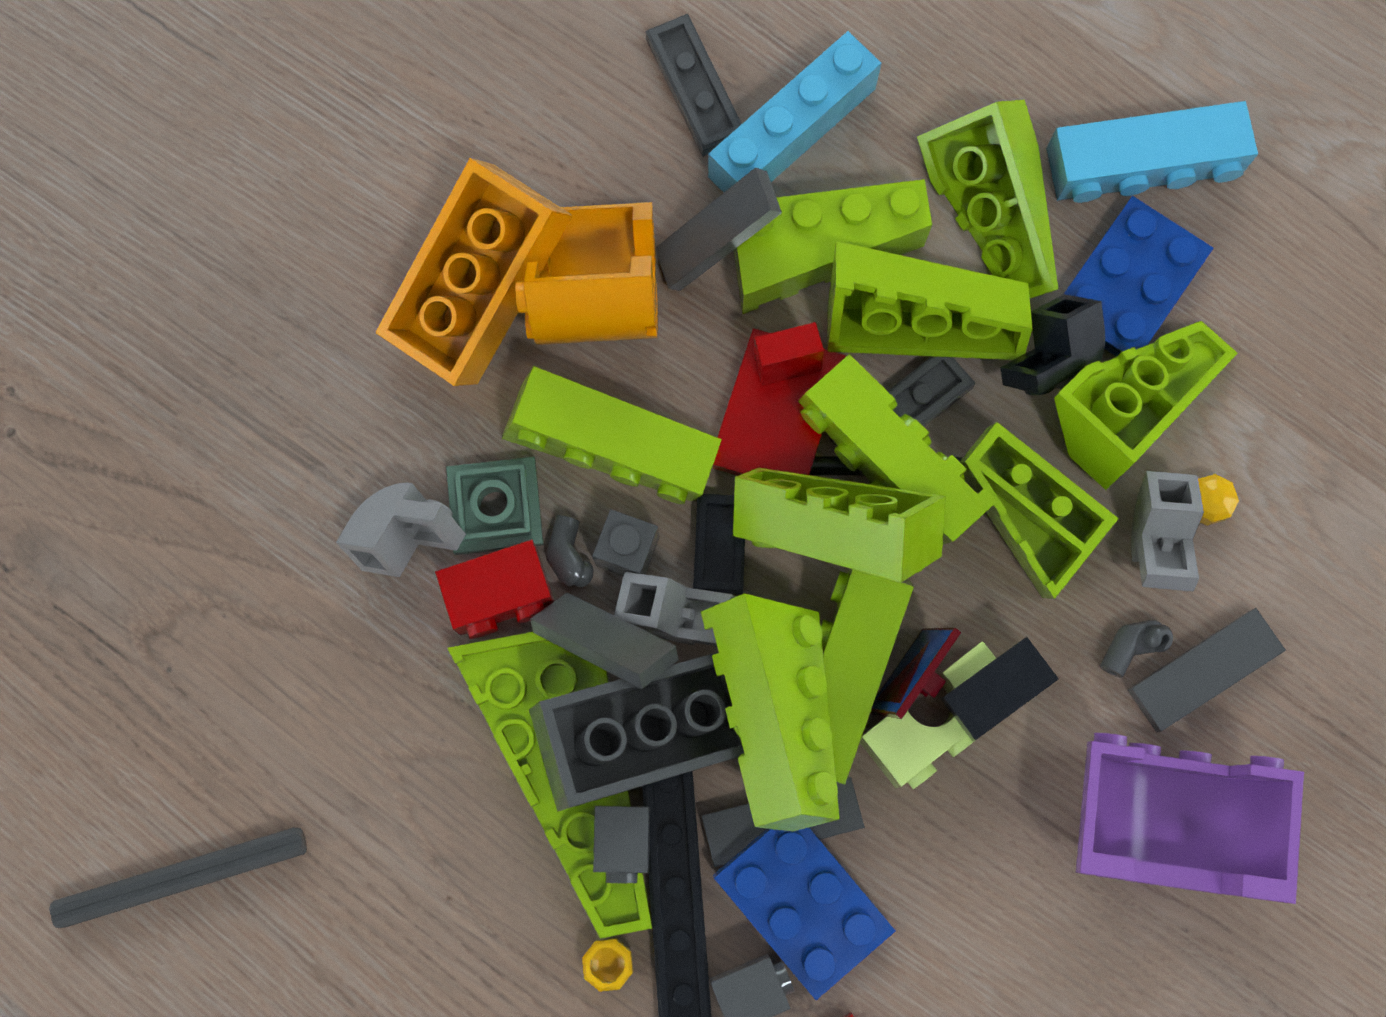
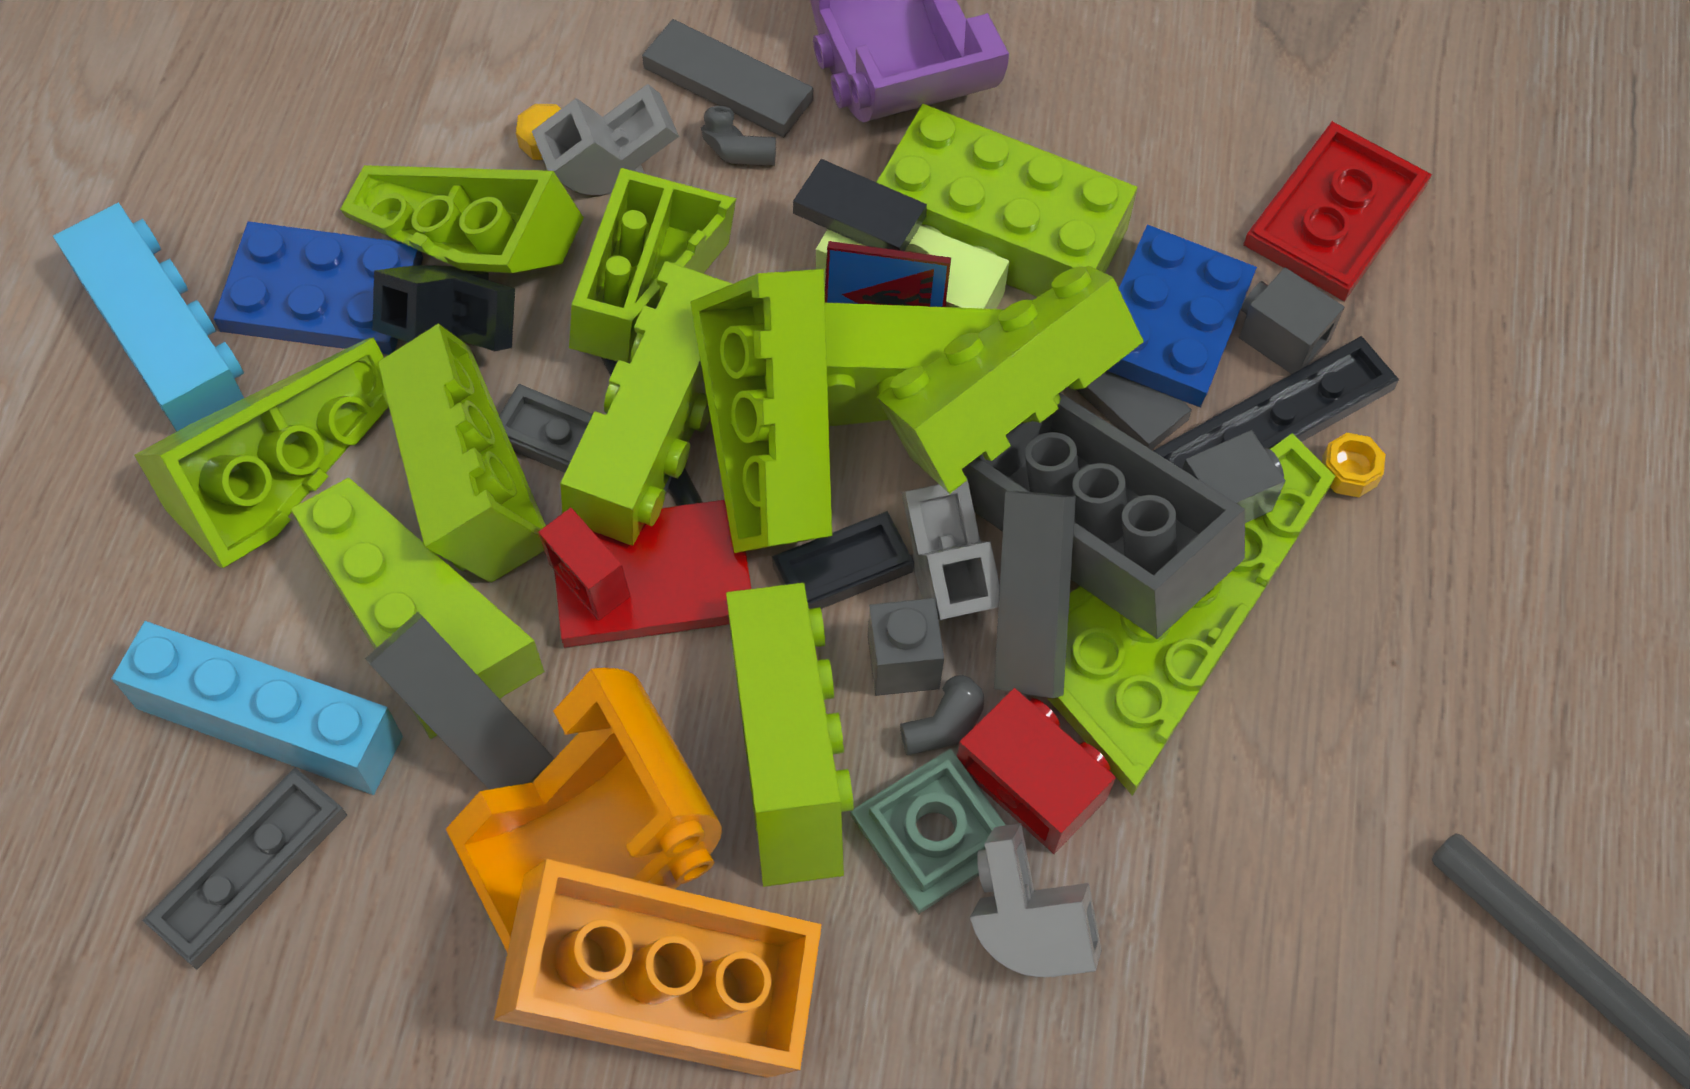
camera: 120 degrees left, 15 degrees down
(964, 819) = (1010, 198): none -> lime brick

